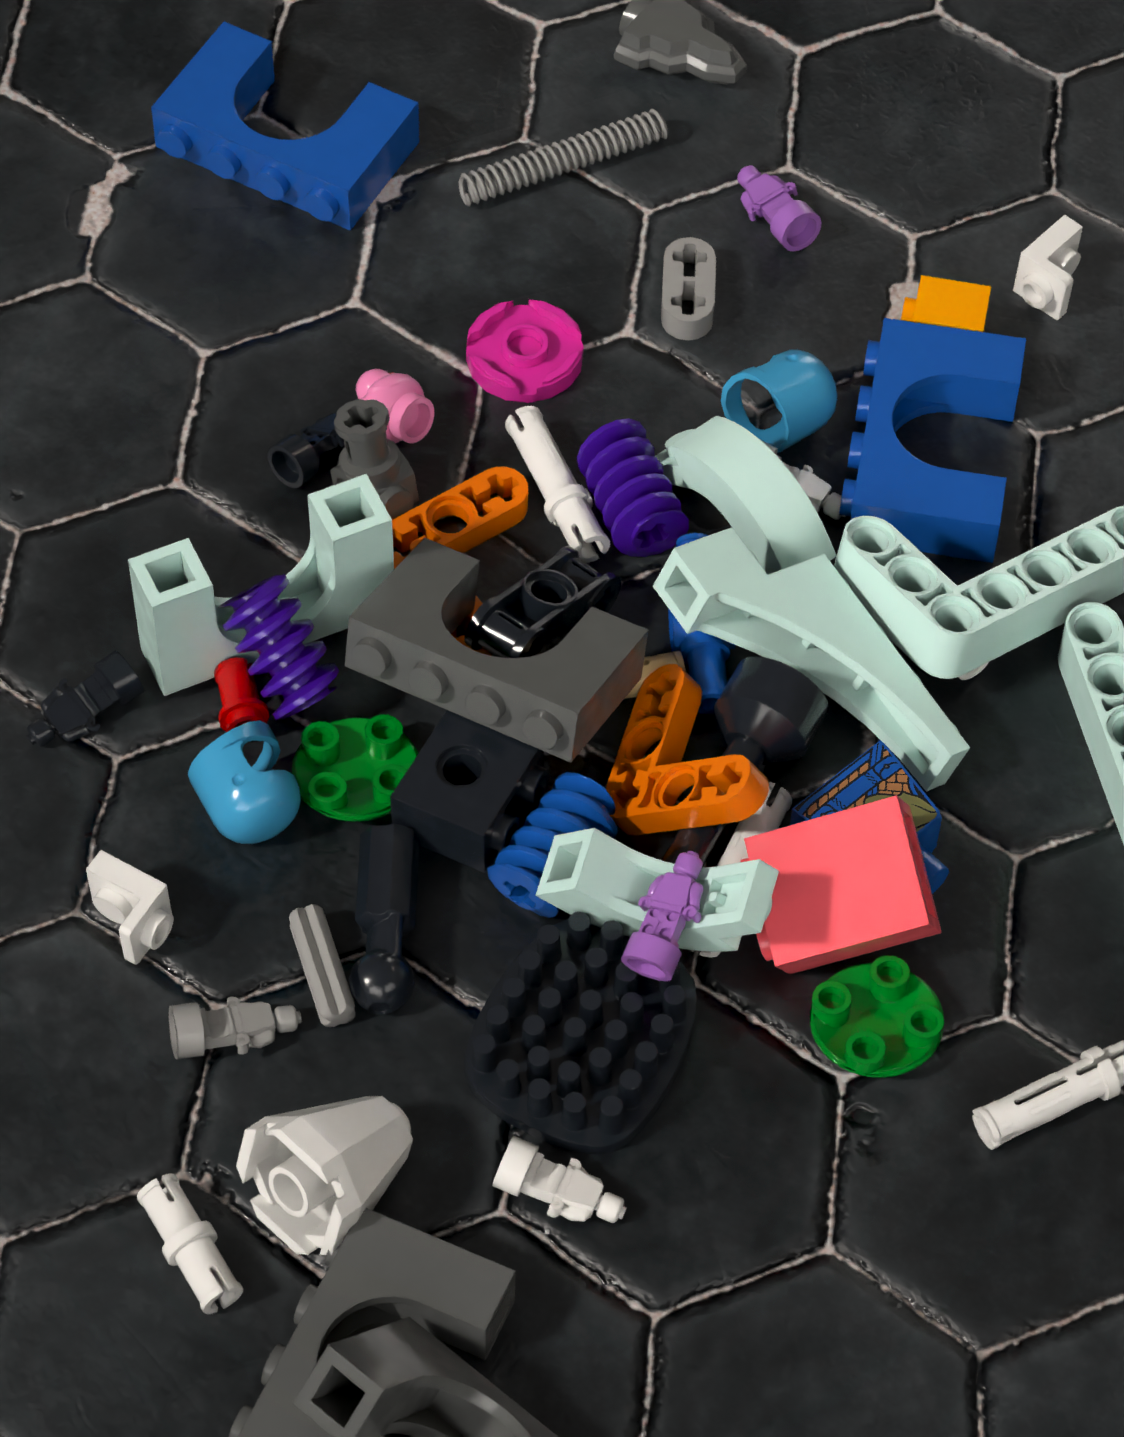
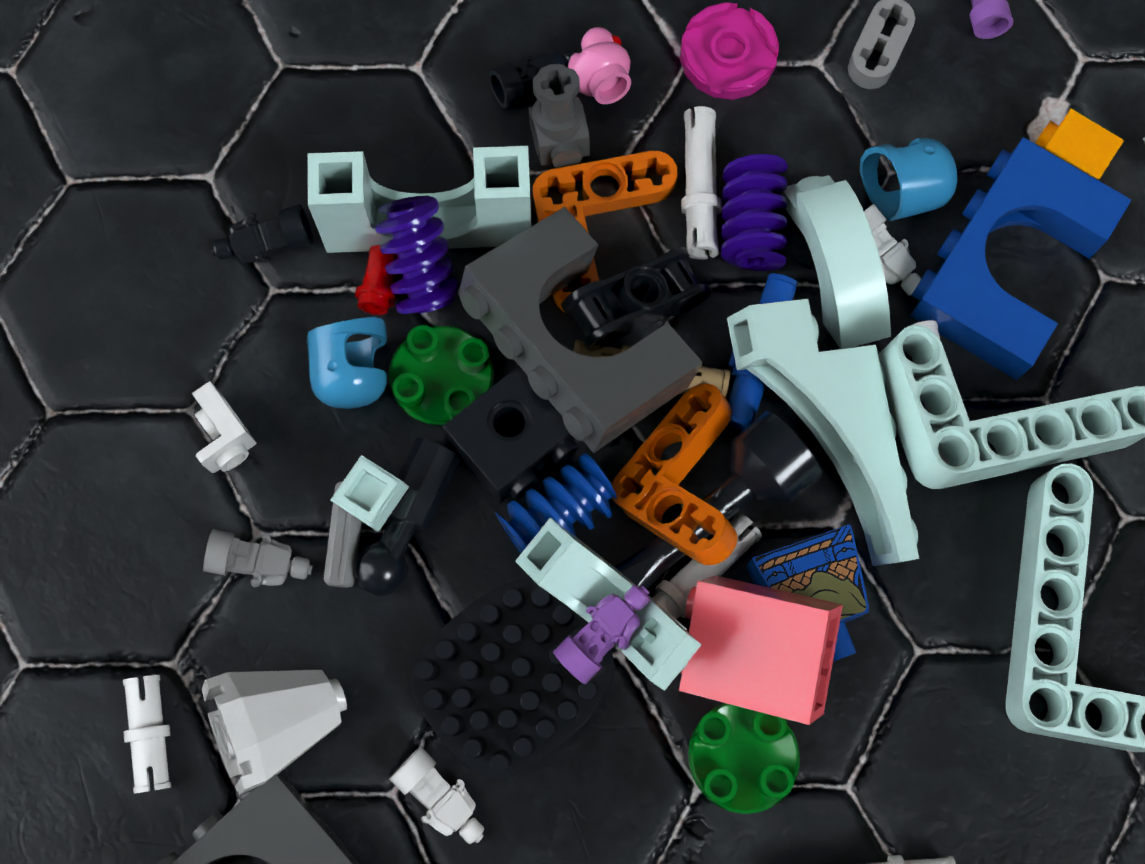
camera: 20 degrees right, 20 degrees up
(336, 899) = (369, 493): none -> light aqua tile

